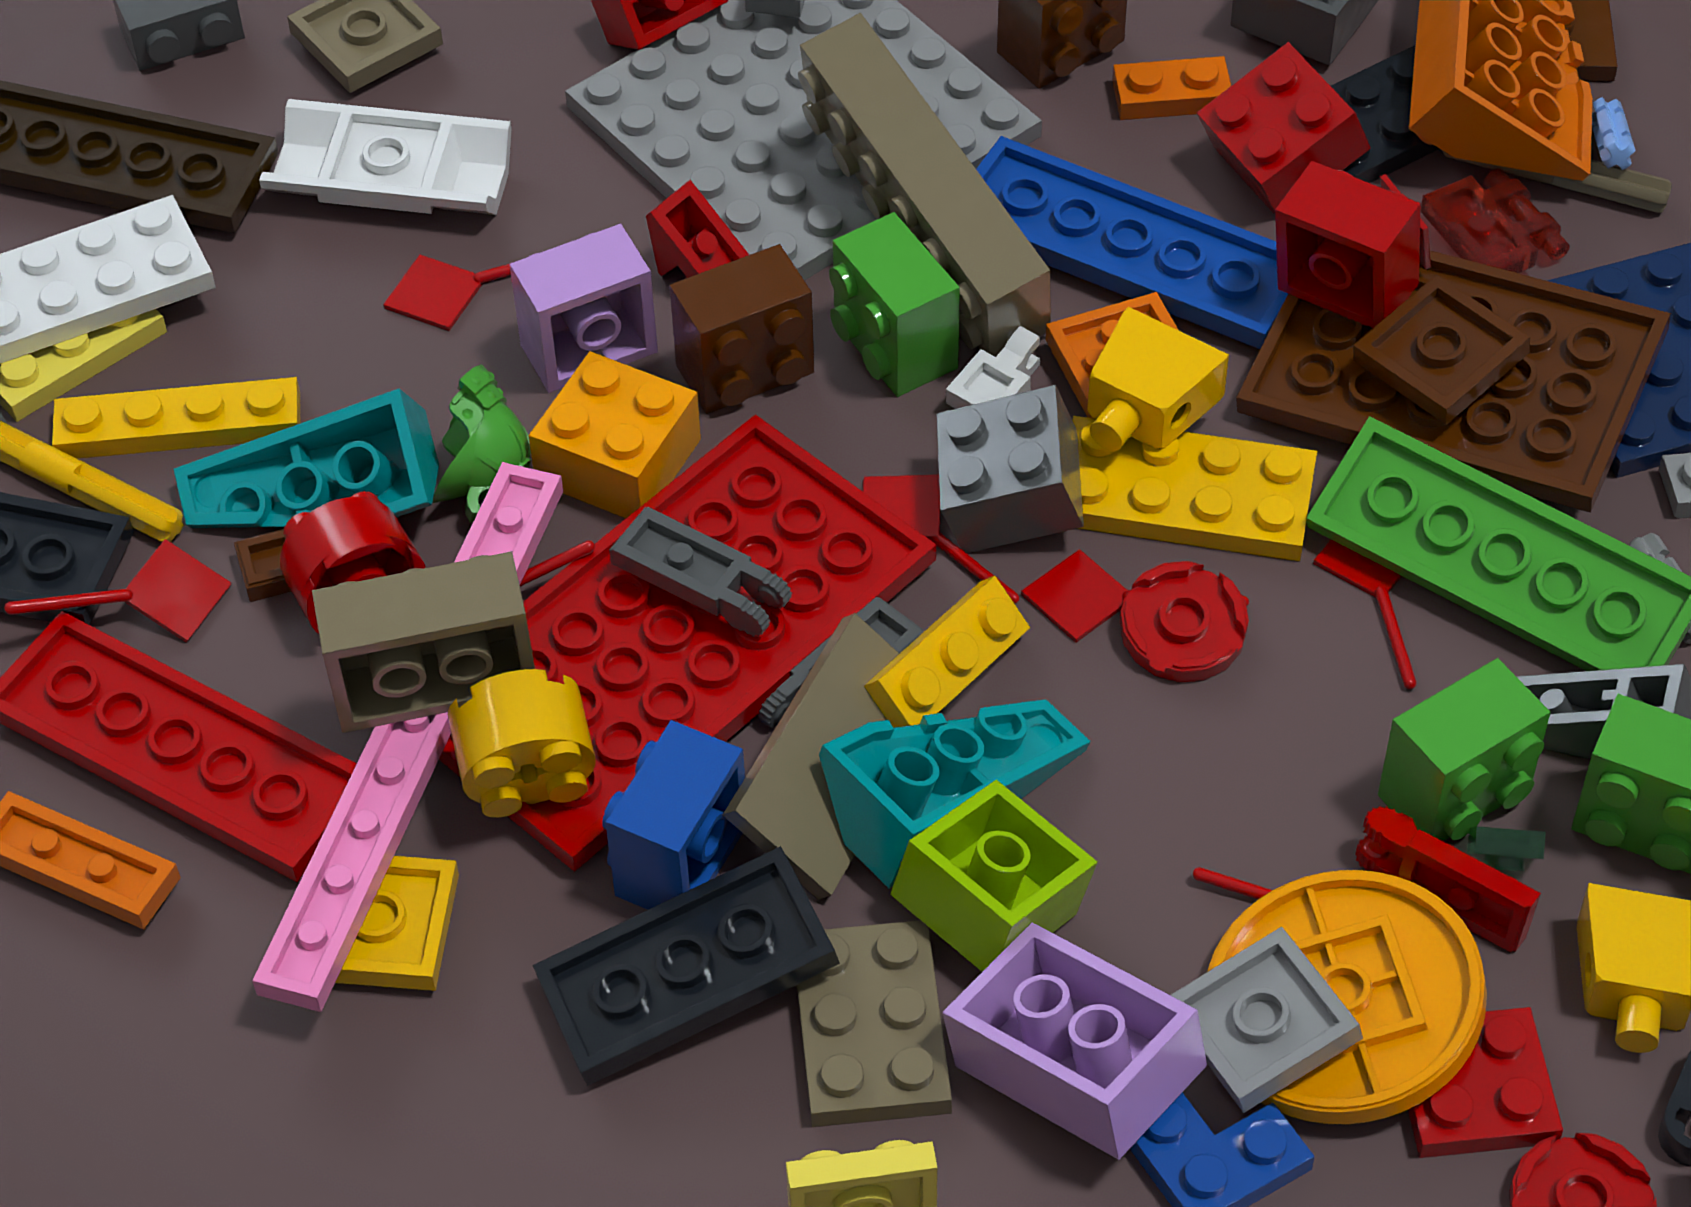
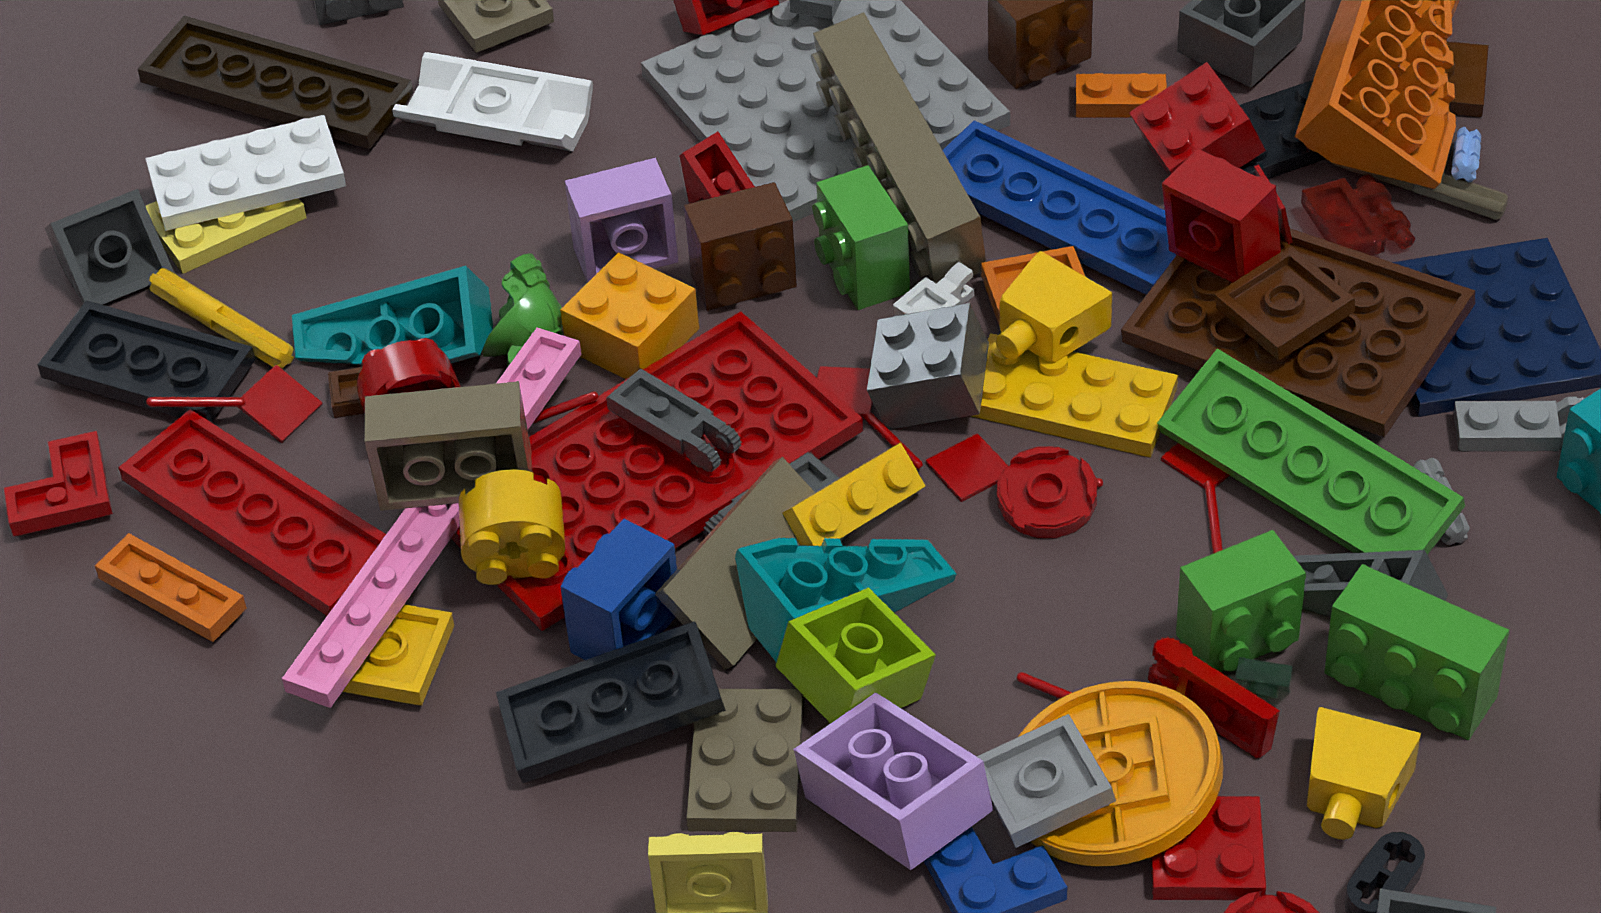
camera: 10 degrees right, 5 degrees down
(174, 417) = (298, 279): yellow plate -> none
(438, 291) = (516, 204): red piece -> none

